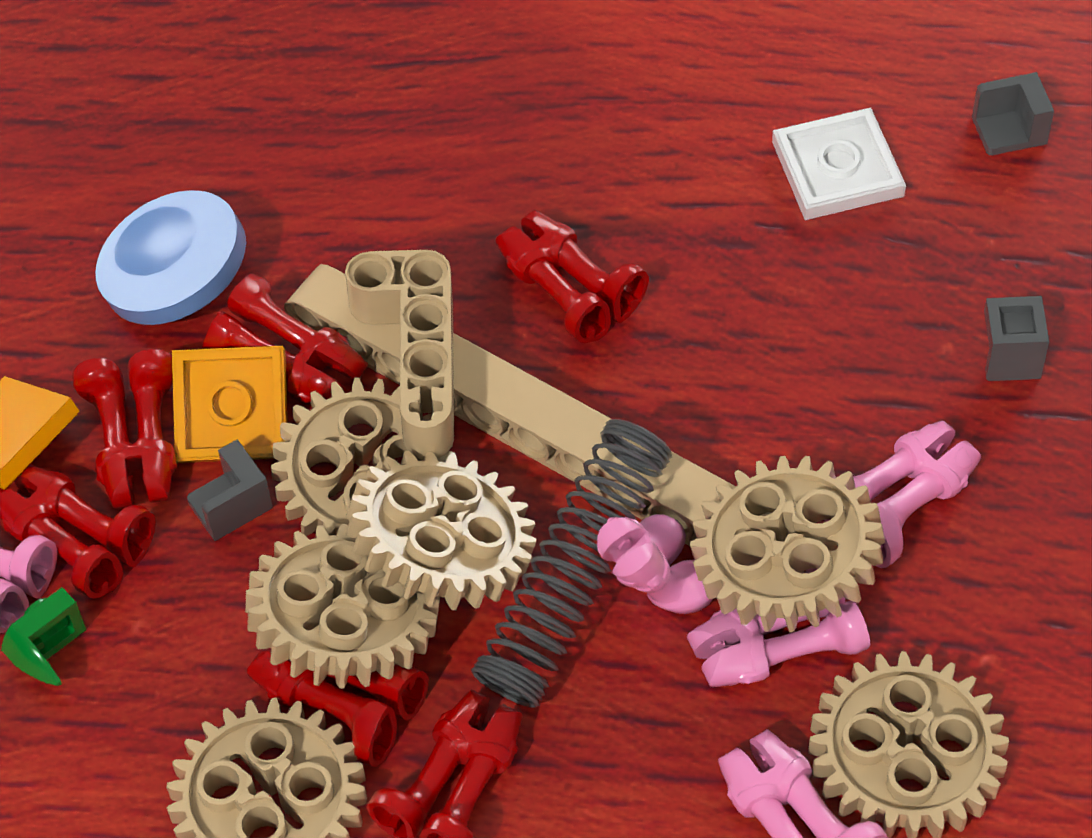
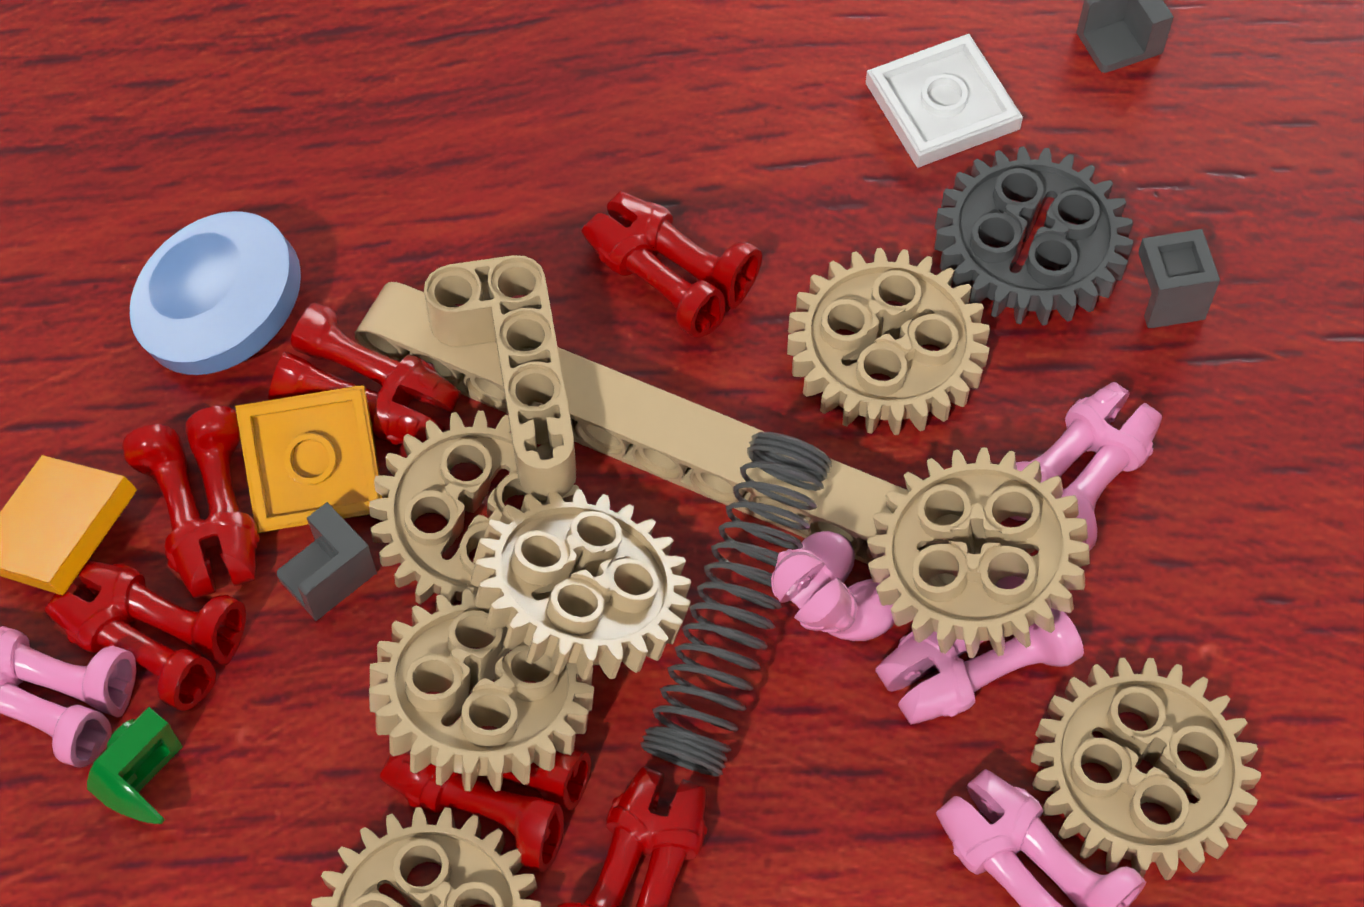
camera: 10 degrees left, 5 degrees up
(748, 363) = (888, 341): none -> tan gear
(873, 263) = (1085, 255): none -> dark grey gear

